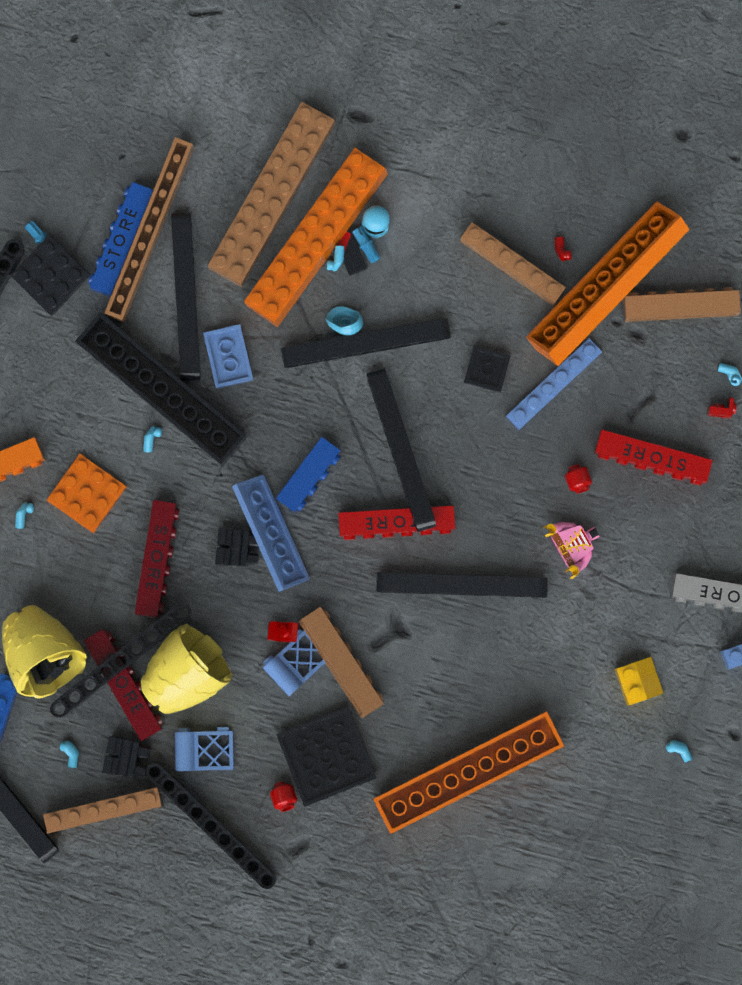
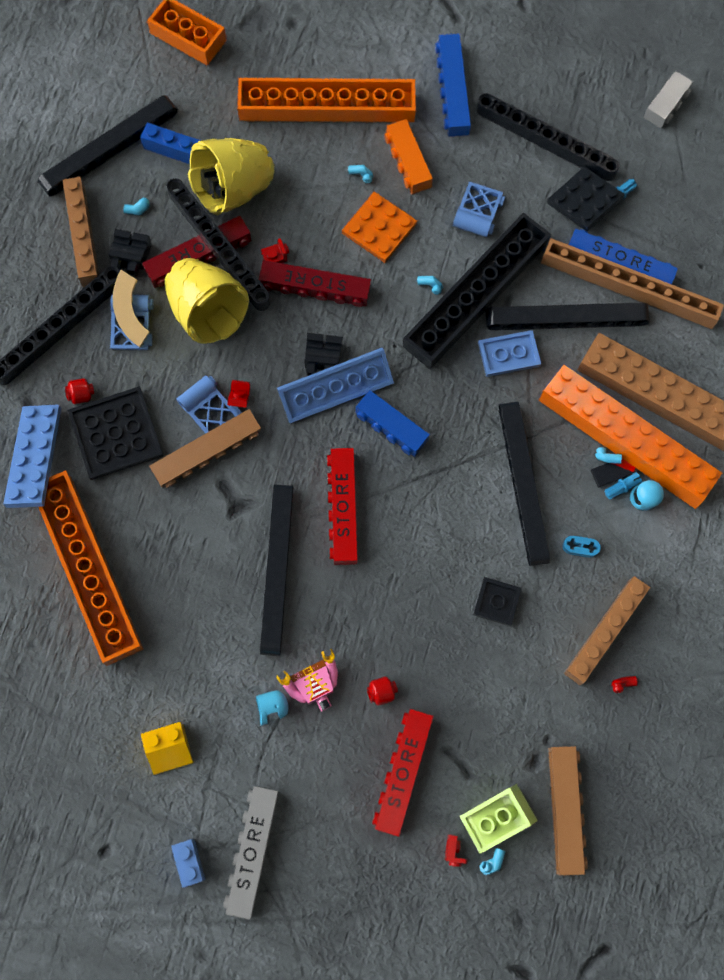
camera: 90 degrees right, 10 degrees down
(79, 390) = (474, 219): none -> medium blue piece
(121, 602) = (276, 252): none -> red bracket
(197, 754) = (124, 311): none -> tan tile
(344, 320) = (545, 462): medium azure hat -> none
(357, 835) = (32, 456): none -> medium blue plate
(401, 450) = (413, 510): black beam -> none
(423, 288) = (580, 551): none -> dark azure beam
(553, 384) = (482, 671): medium blue plate -> none
(595, 584) = (271, 702): none -> medium azure helmet
(607, 283) = (591, 730): orange brick -> none
(679, 747) = (94, 789): medium azure arm -> none
(691, 368) = (498, 818): none -> yellowish green slope

